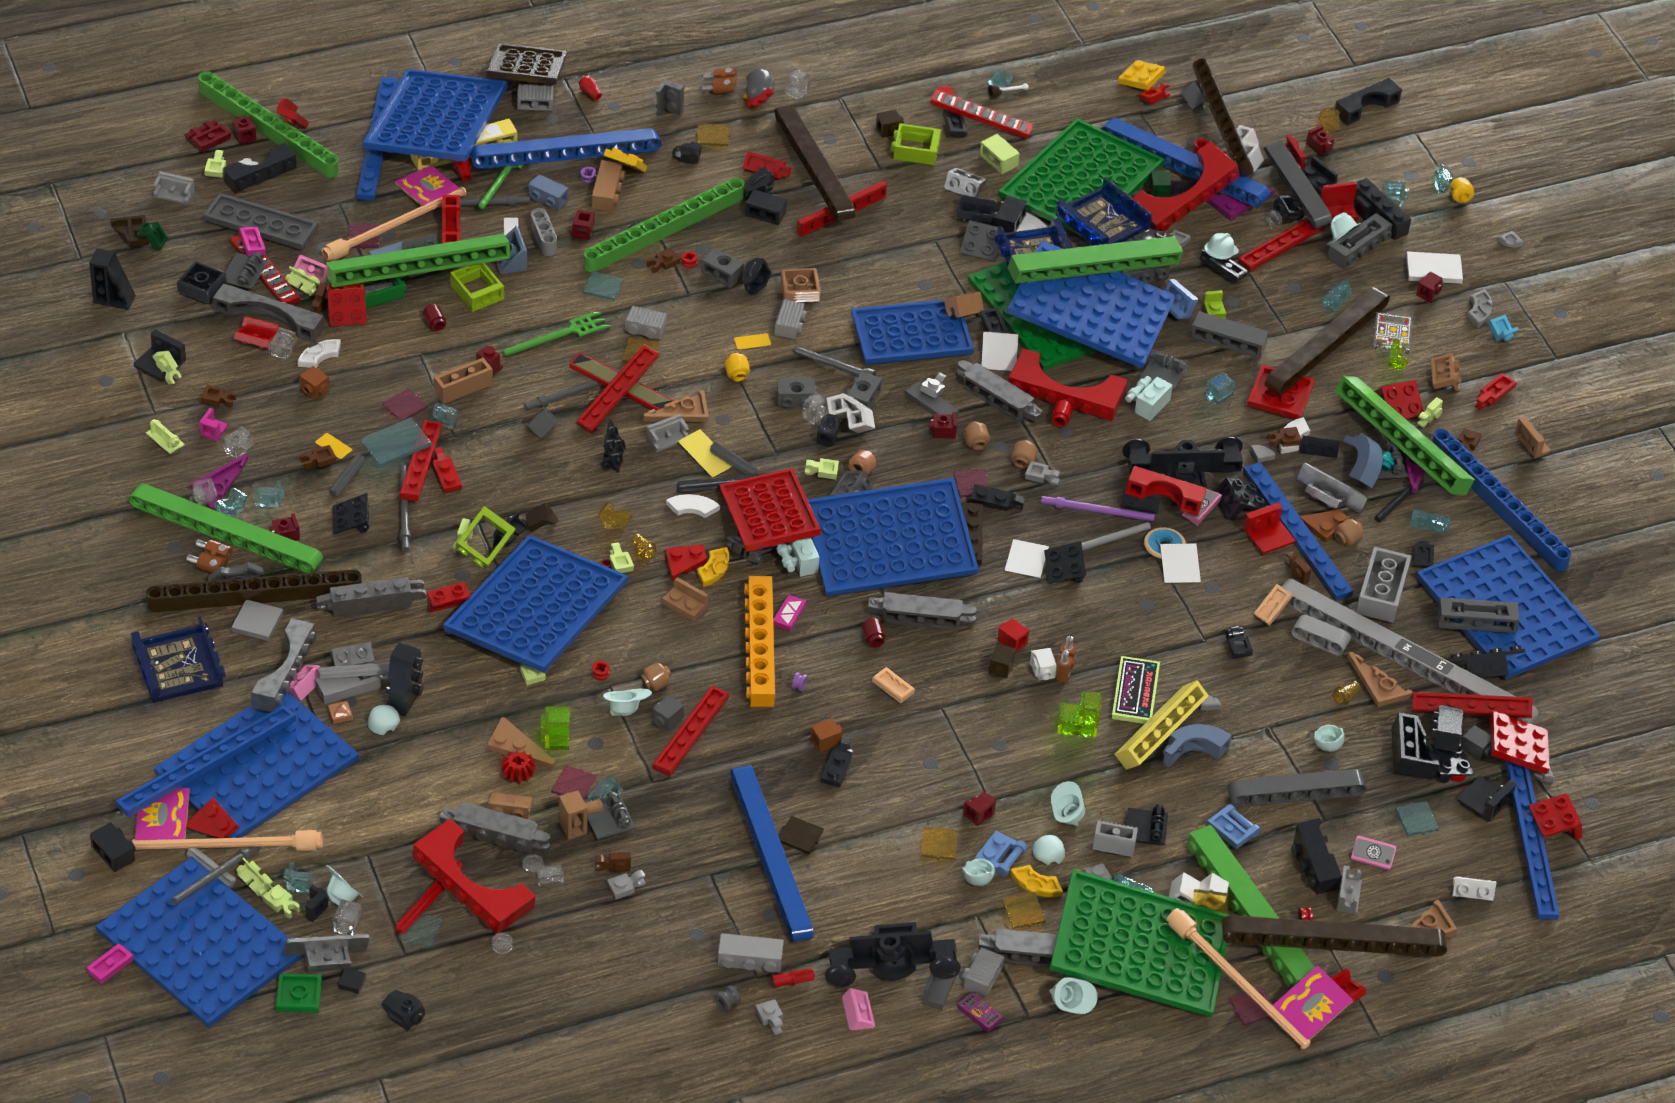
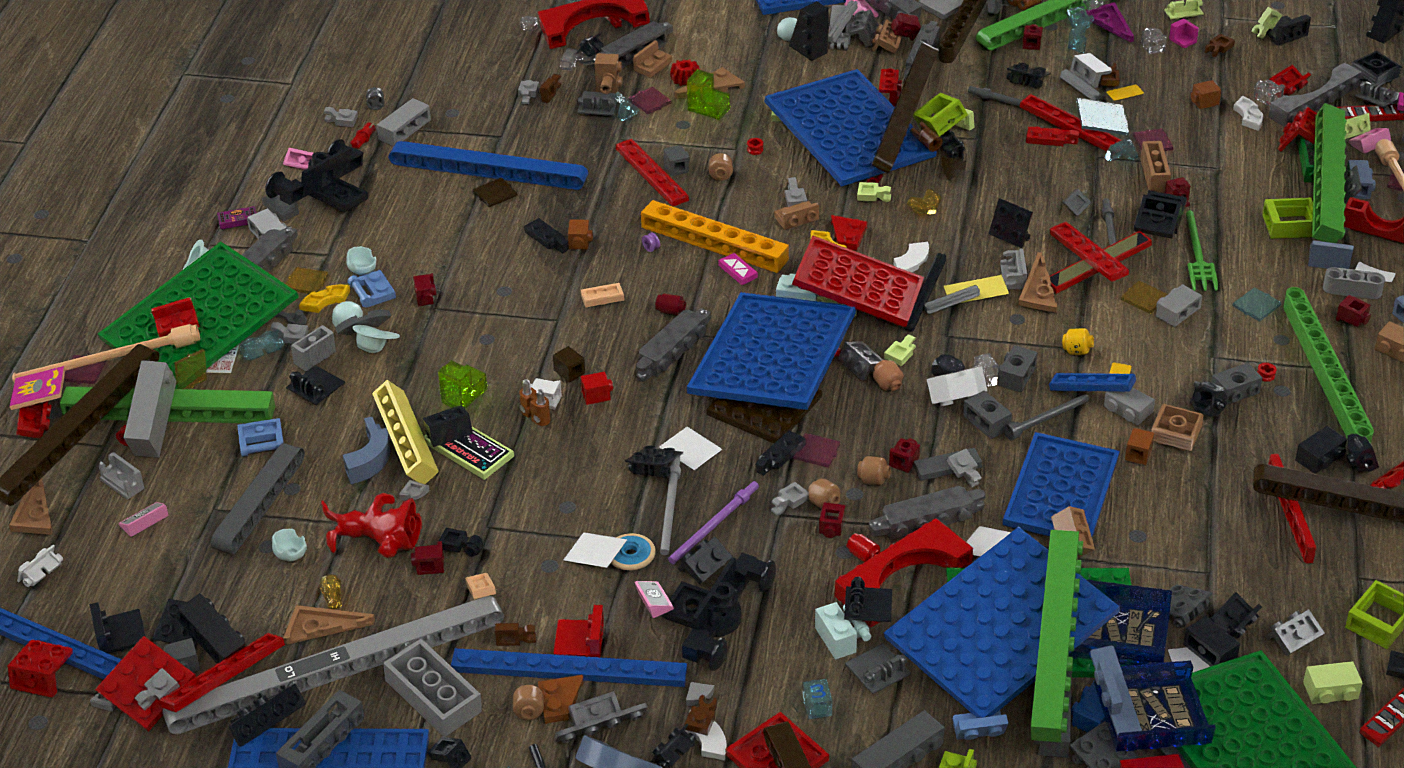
camera: 125 degrees right, 5 degrees down
(322, 470) = (1089, 68): none -> light grey panel
(342, 619) = (906, 25): none -> dark red brick
(354, 635) = (885, 38): none -> medium nougat bracket
(434, 317) = (1259, 182): dark red brick -> none
(484, 557) = (905, 108): none -> dark brown beam
(523, 537) = (927, 137): none -> reddish brown hinge
(523, 859) = (591, 45): none -> black hinge
(538, 356) = (1160, 214): none -> black bracket
(625, 702) = (707, 137): light aqua piece -> none
(645, 548) = (878, 210): clear yellow cone -> none
(656, 613) = (793, 194): none -> light grey plate
(664, 259) = (1275, 355): reddish brown plate -> none
(788, 340) = (1092, 382): none -> blue tile
(839, 297) = (1139, 446): none -> dark orange brick
(939, 843) = (416, 261): clear yellow piece -> none
(1047, 439) = (831, 525): none -> dark red brick
(1056, 823) = (373, 319): none -> dark grey tile
(1119, 223) = (1114, 690): none -> sand blue bracket
(1127, 377) = (867, 603): none -> black hinge
(1136, 695) = (447, 425): none -> black hinge
(1165, 946) = (174, 315): none -> red bracket
(1183, 886) = (215, 375): white brick -> none
(1185, 494) = (660, 571): red arch -> none
(1238, 495) = (642, 637): black bracket -> none
(1269, 676) = (393, 529): none -> red animal
(1270, 649) = (428, 559): none -> dark red brick
(1285, 885) = (150, 409): none -> light grey brick
(1314, 857) = (172, 465): black wedge -> none
(1321, 635) = (415, 606): light grey beam -> none
(1410, 749) = (228, 595): black wedge -> none
(1417, 818) = (151, 573): clear light blue piece -> none
(1523, 721) = (157, 688): none -> light grey plate

